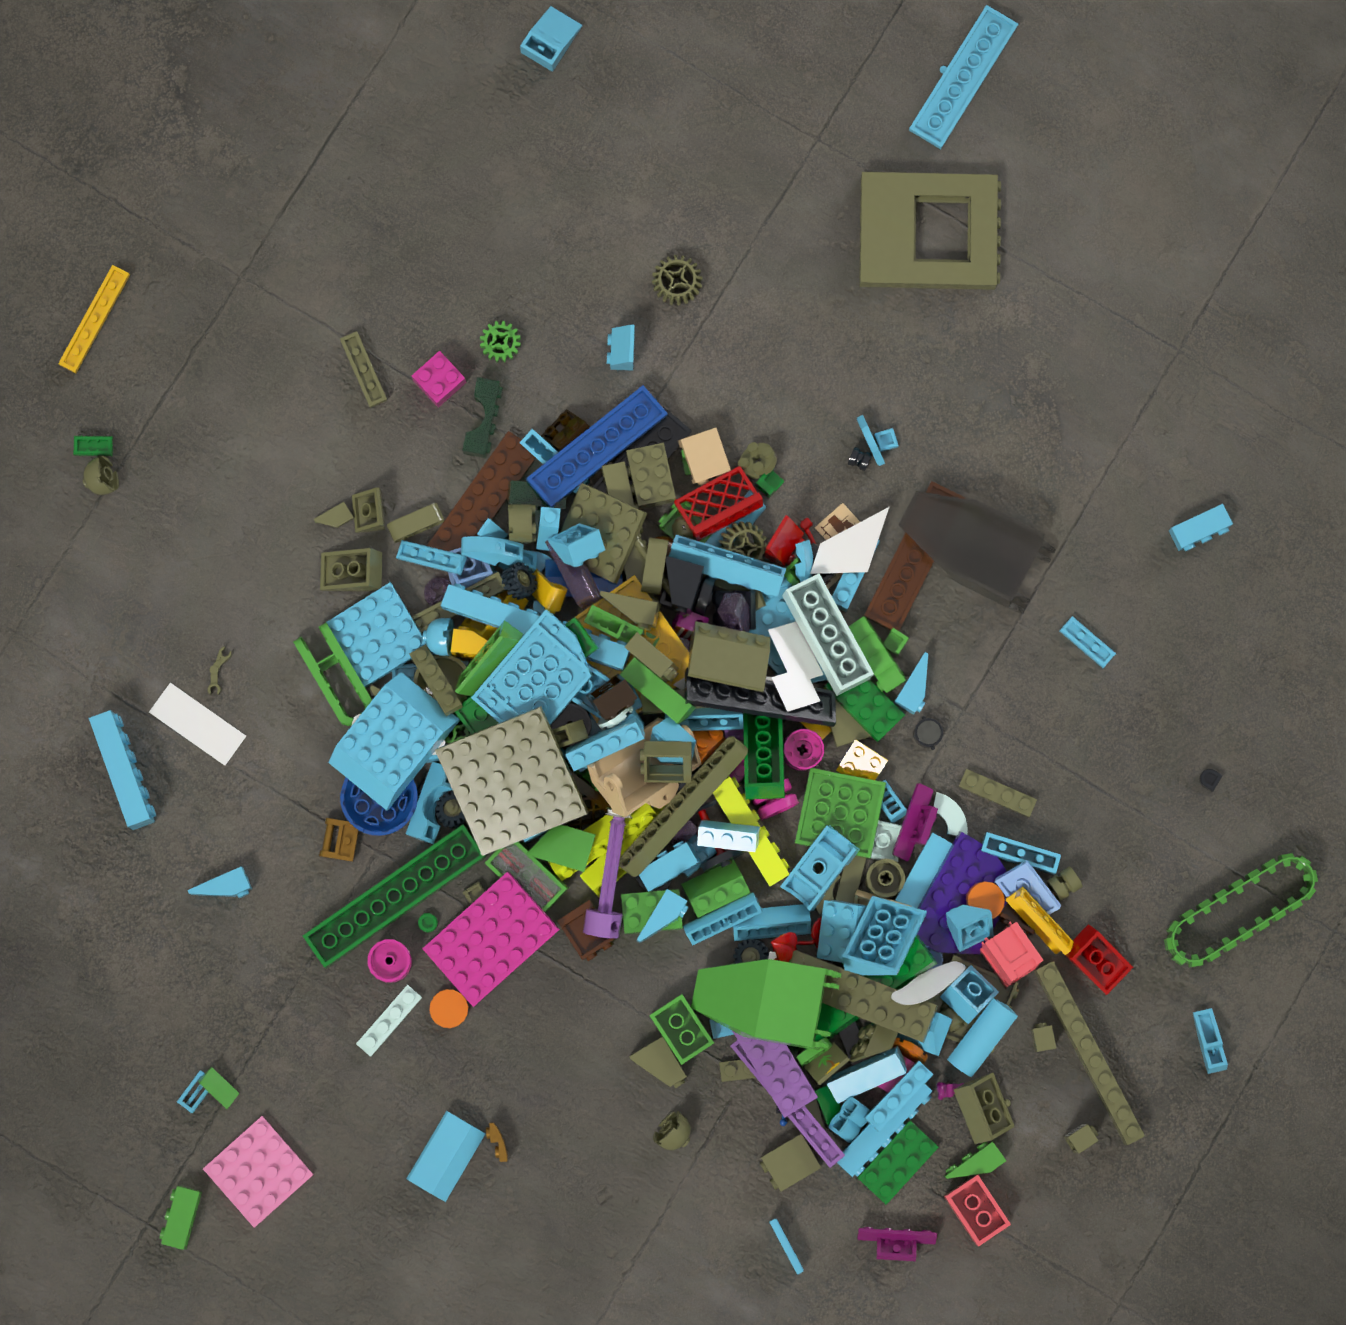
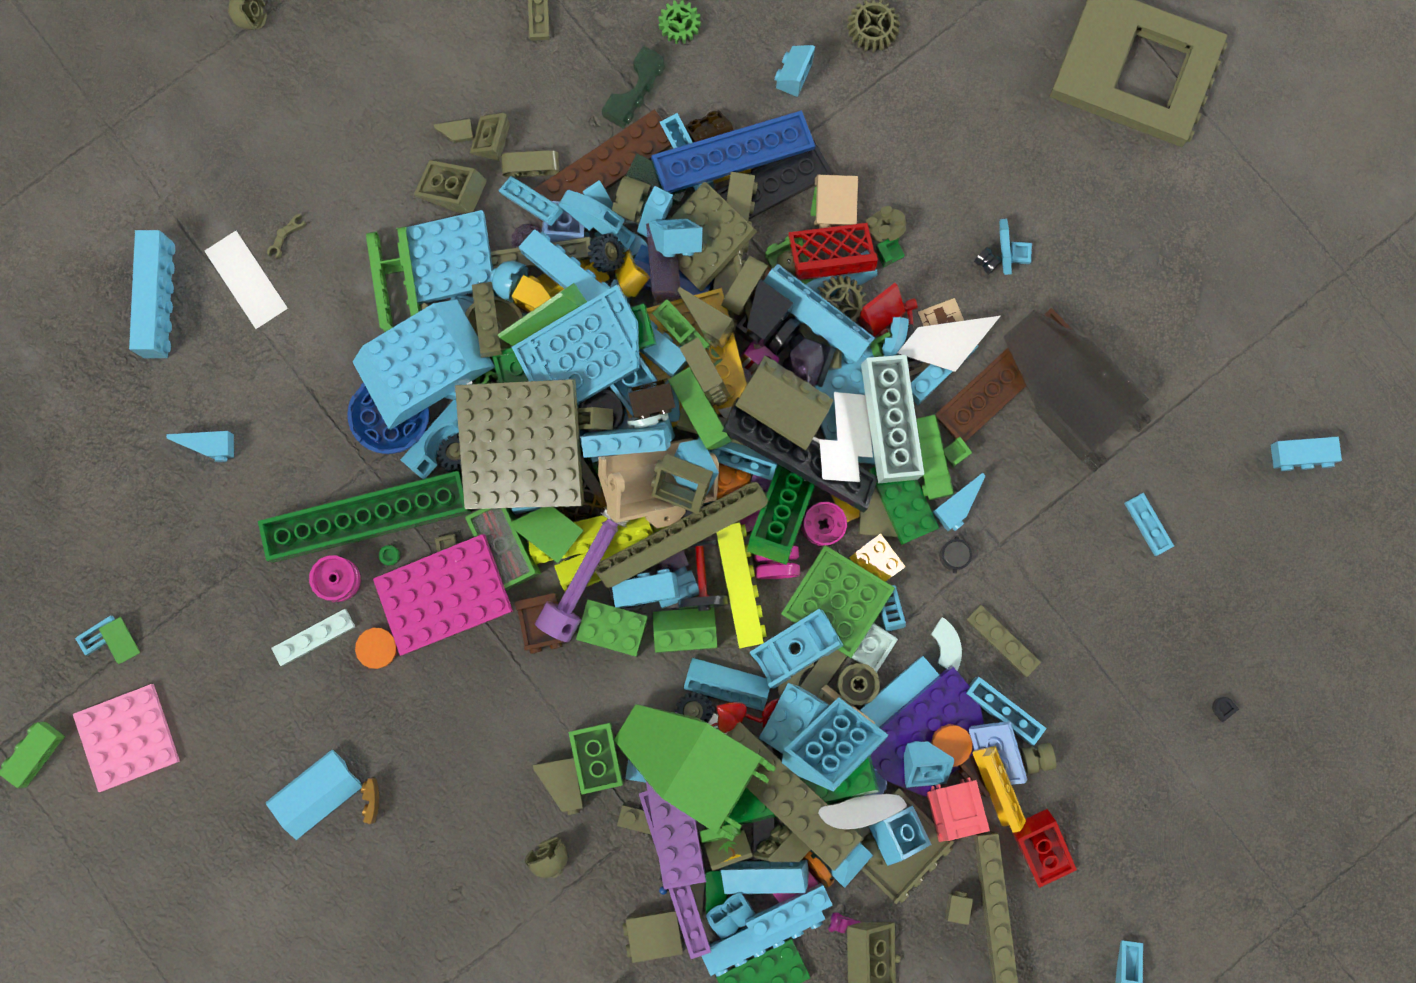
camera: 25 degrees right, 0 degrees up
(345, 843) = (339, 447): pearl gold plate -> none
(438, 379) = (606, 35): dark pink brick -> none
(651, 476) = (775, 200): olive brick -> none
(665, 913) = (622, 635): medium azure slope -> none
(722, 918) = (679, 662): medium azure brick -> none
(728, 836) = (715, 581): brick -> none
(916, 823) = (911, 640): magenta bracket -> none
(982, 1037) = (897, 884): medium azure brick -> none
(1307, 892) = (1285, 862): bright green piece -> none

